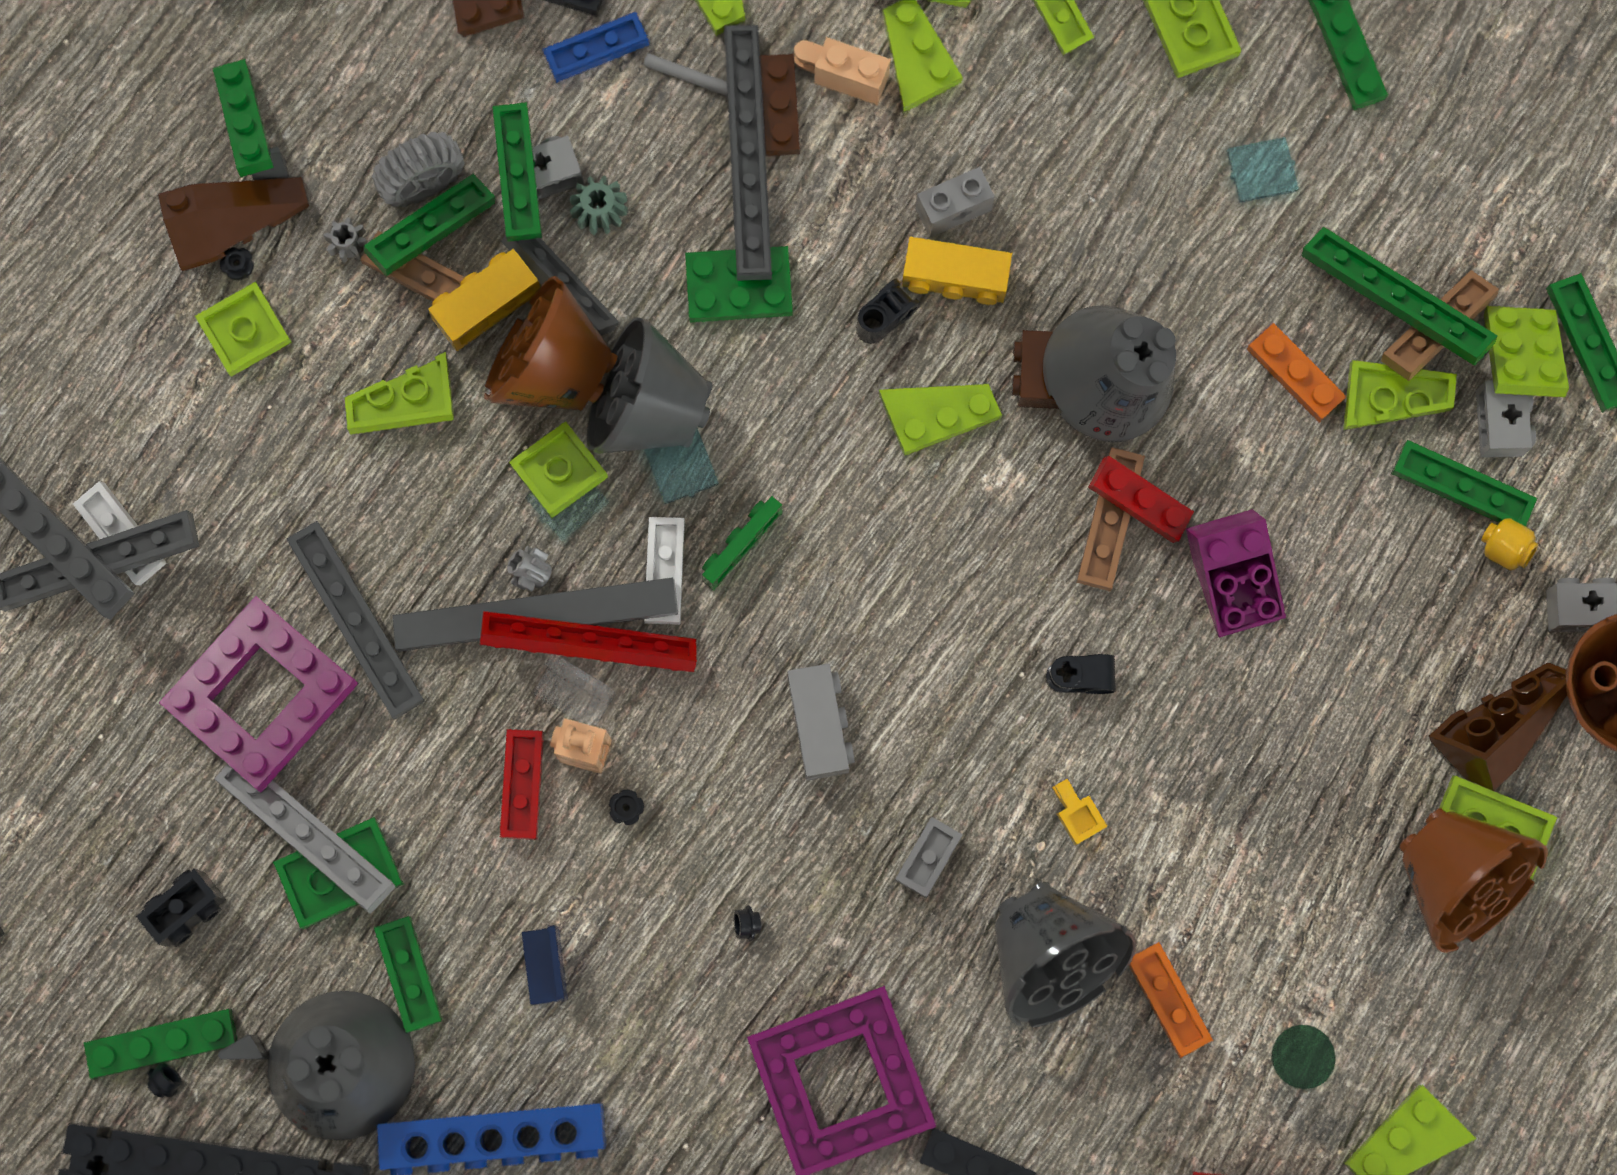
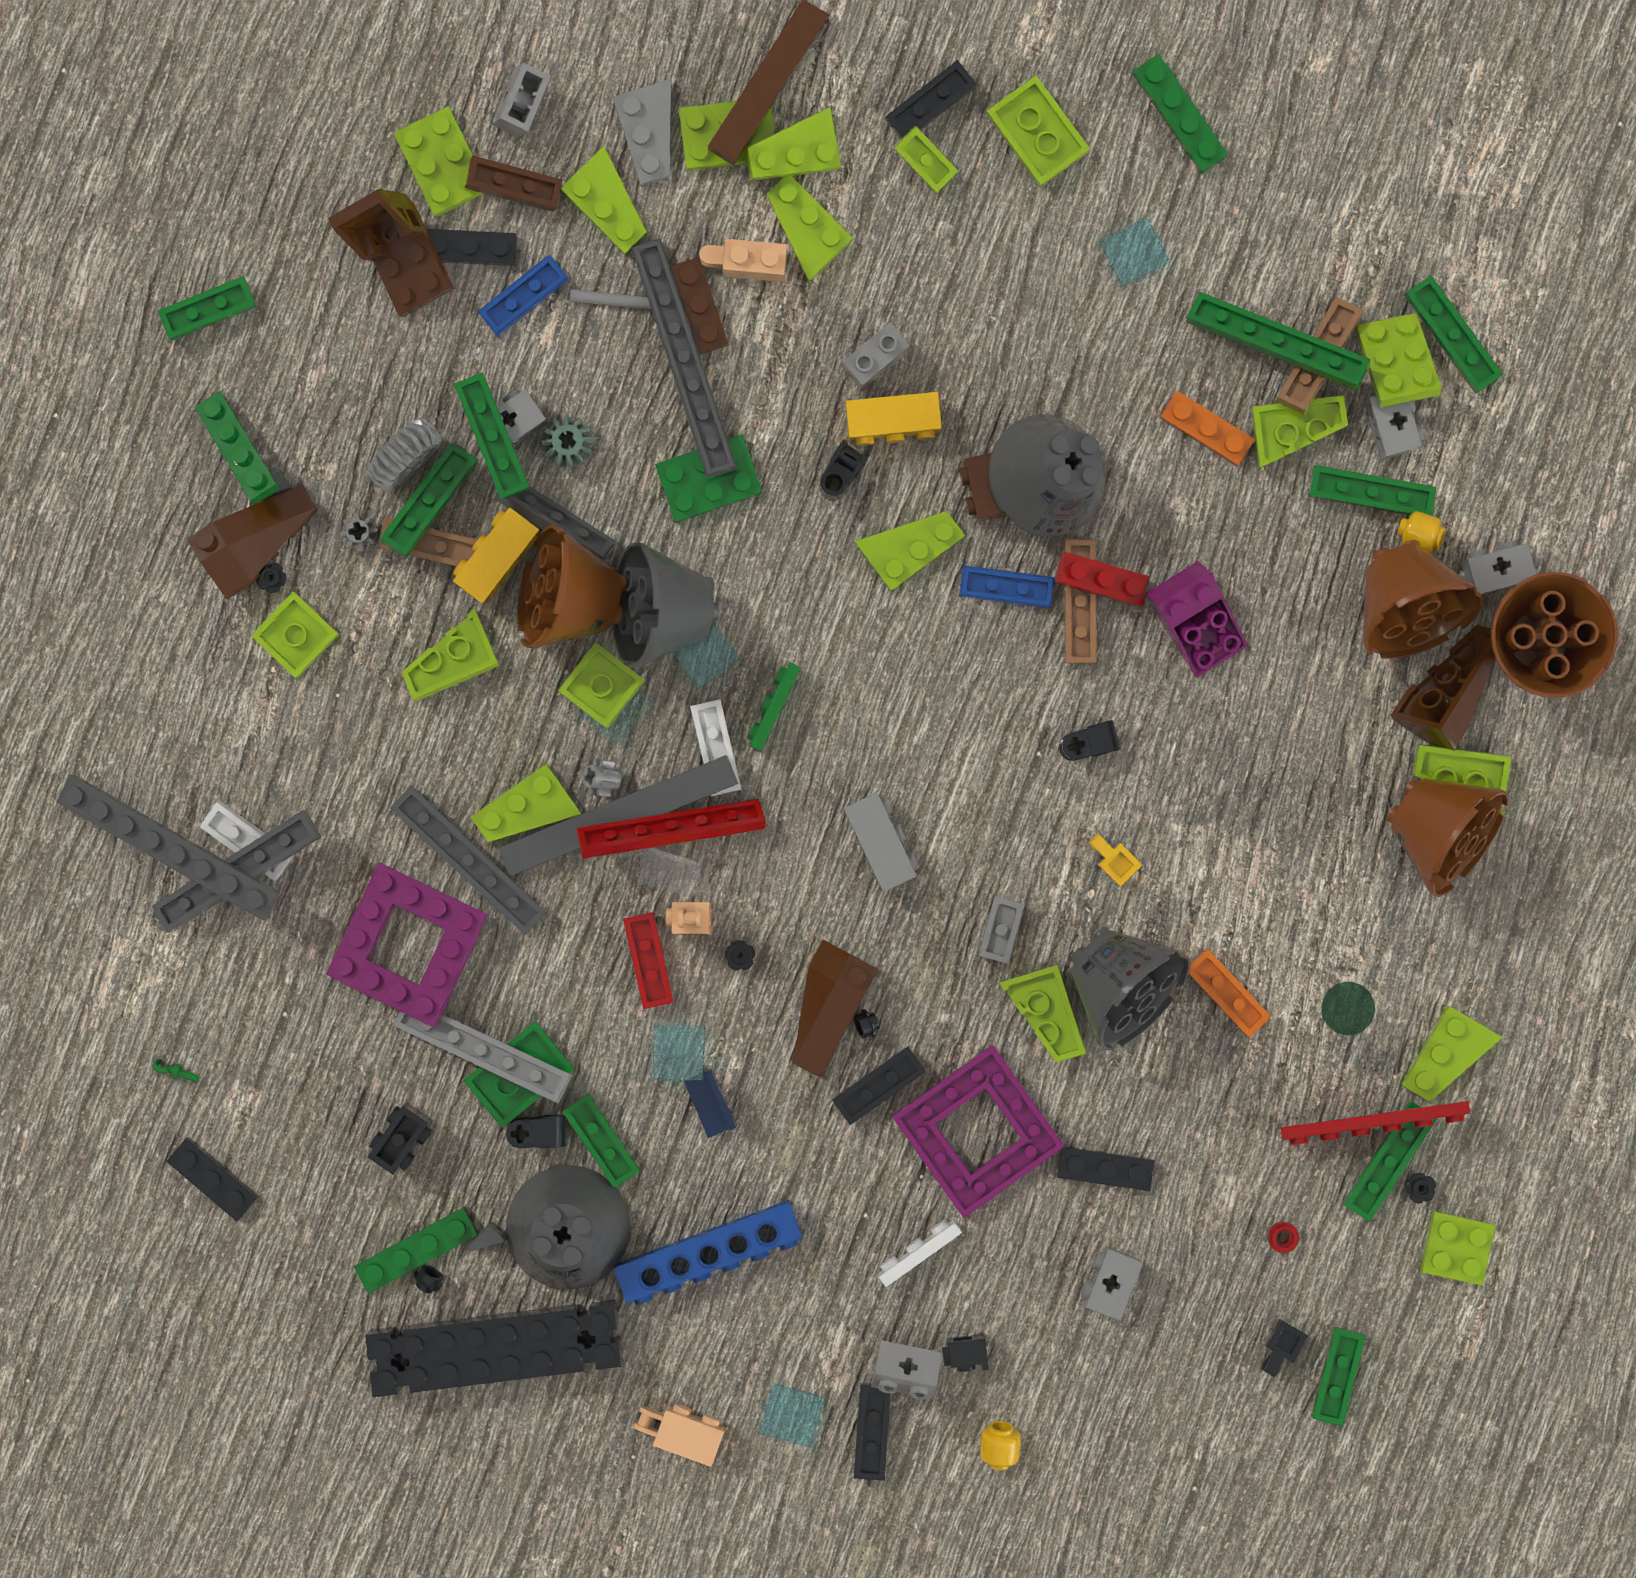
camera: 15 degrees left, 10 degrees up
(344, 944) = (544, 1132): none -> black piece
(440, 578) = (526, 806): none -> lime wing
(525, 898) = (678, 1053): none -> clear light blue piece
(716, 882) = (830, 999): none -> reddish brown wedge
(741, 997) = (878, 1085): none -> black plate
(958, 962) = (1048, 1009): none -> lime wing
(1033, 483) = (1006, 587): none -> blue tile
(1487, 614) = (1414, 602): none -> dark orange cone

